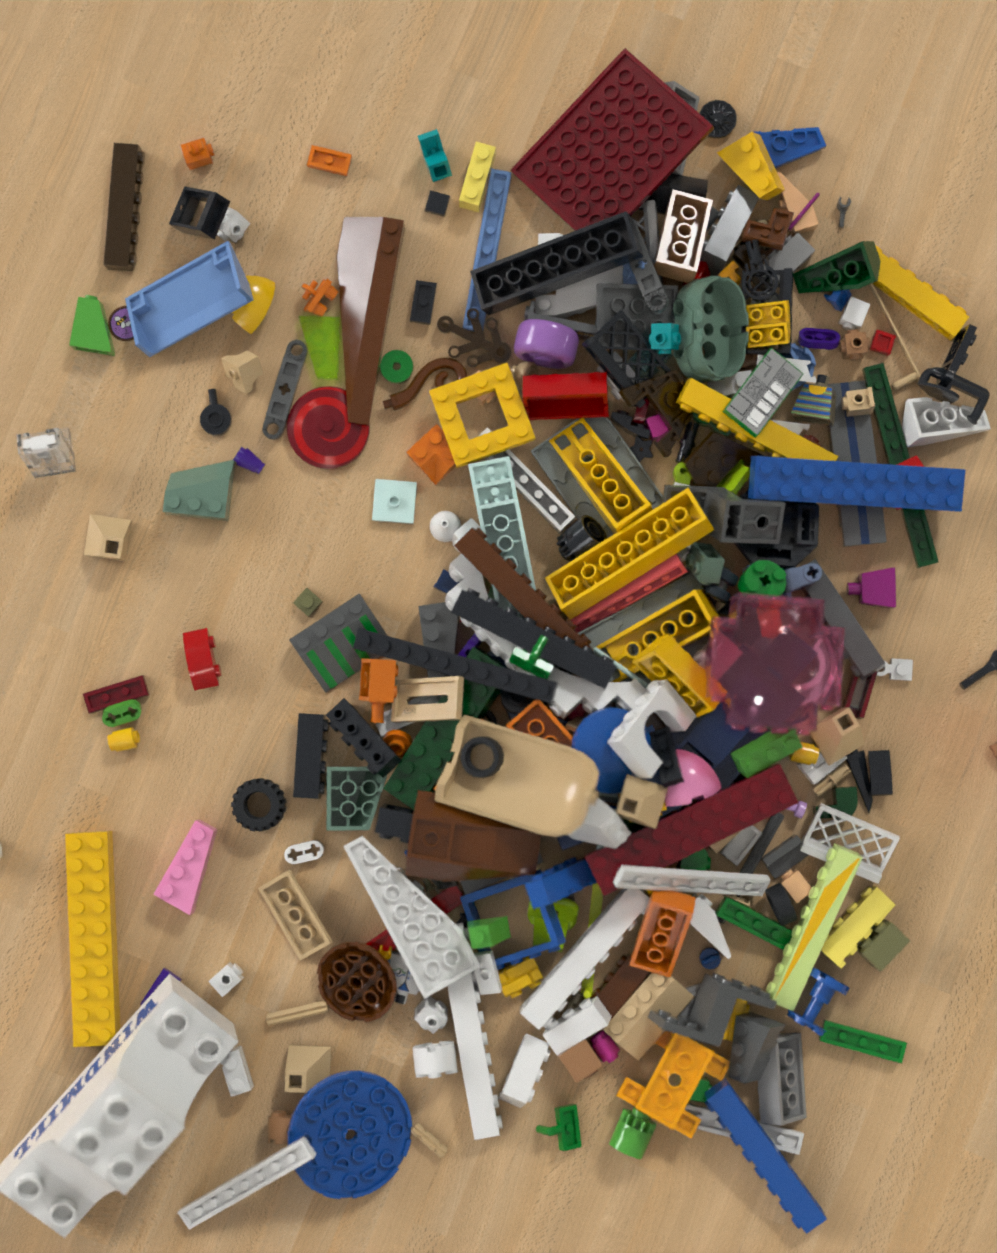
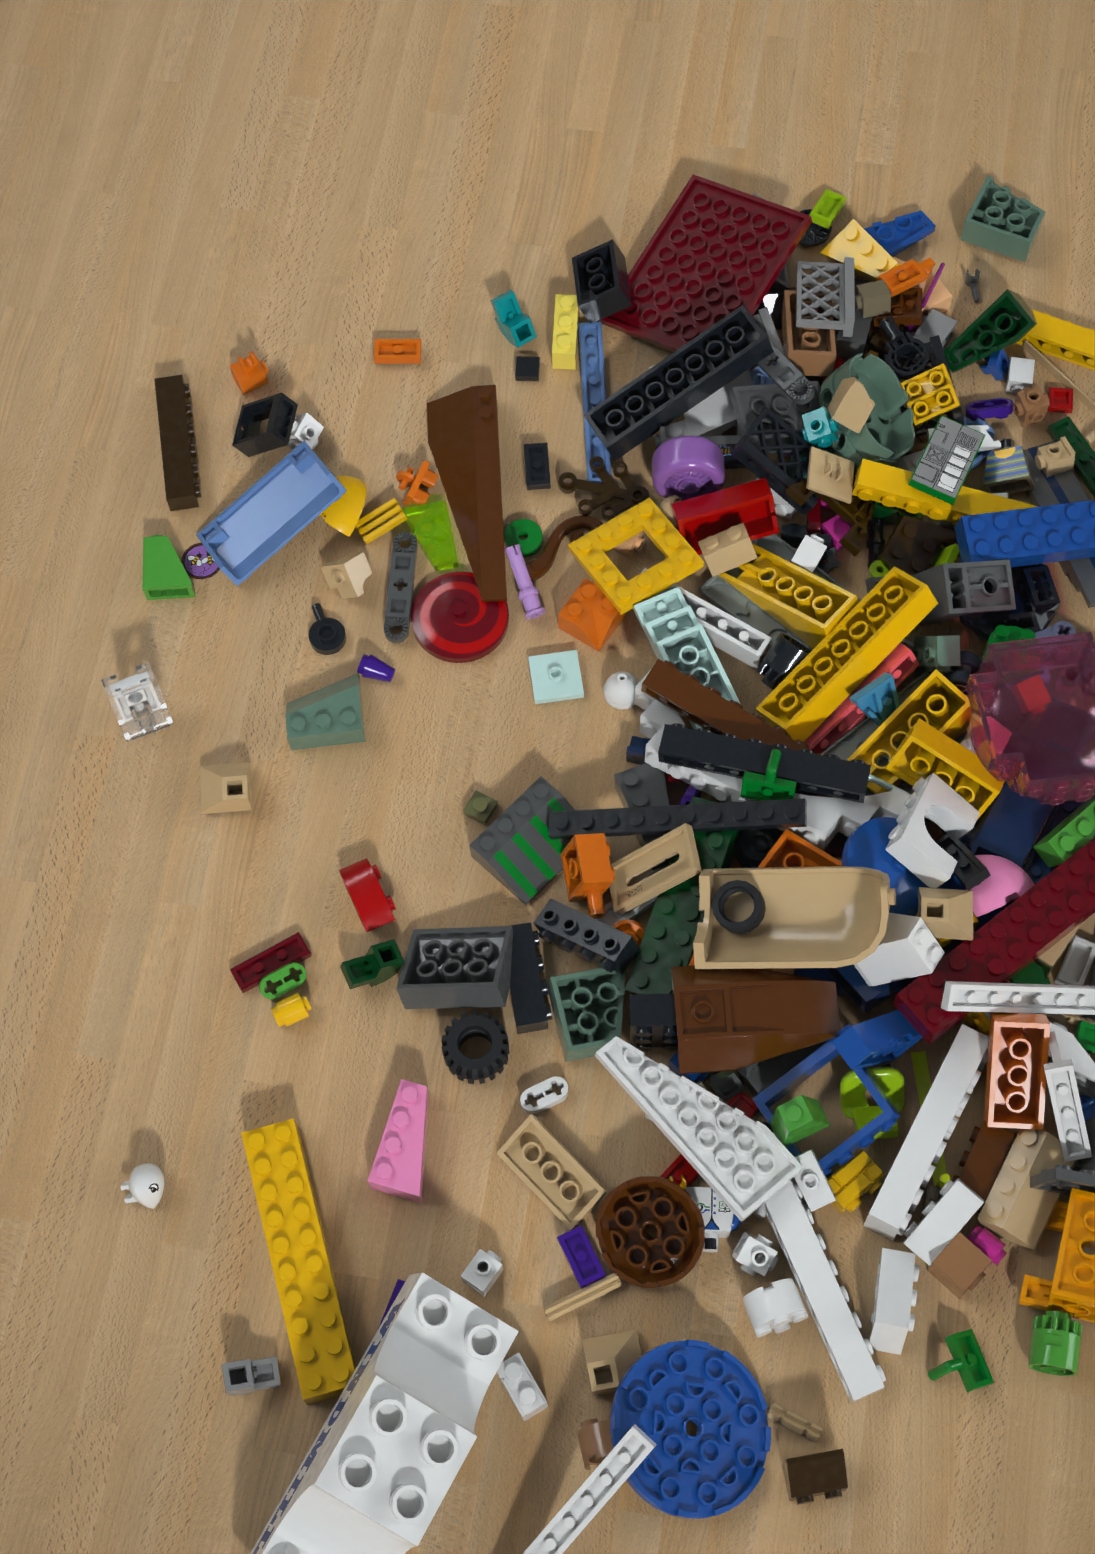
camera: 15 degrees left, 20 degrees down
(36, 1017) = (248, 1376): none -> light grey brick
(192, 720) = (375, 967): none -> dark green brick
(258, 738) = (457, 968): none -> dark grey slope
(265, 329) = (379, 517): none -> yellow tile
(302, 984) = (581, 1257): none -> dark purple plate
(387, 423) = (528, 593): none -> lavender pin
(432, 1184) = (815, 1476): none -> dark brown slope
(518, 138) = (601, 281): none -> black brick
(561, 424) = (727, 549): none -> tan brick
(626, 445) = (809, 552): none -> white brick
(644, 598) = (877, 698): none -> dark azure wing
(661, 382) = (830, 475): none -> tan piece
(689, 967) = (1066, 1105): none -> white fence
(692, 328) = (851, 404): none -> tan slope
(721, 213) = (843, 295): none -> light grey fence
(736, 104) = (827, 208): none -> lime tile
(745, 218) = (873, 299): none -> dark tan brick
(781, 199) = (907, 275): none -> orange hinge
(885, 156) = (1002, 222): none -> sand green wedge

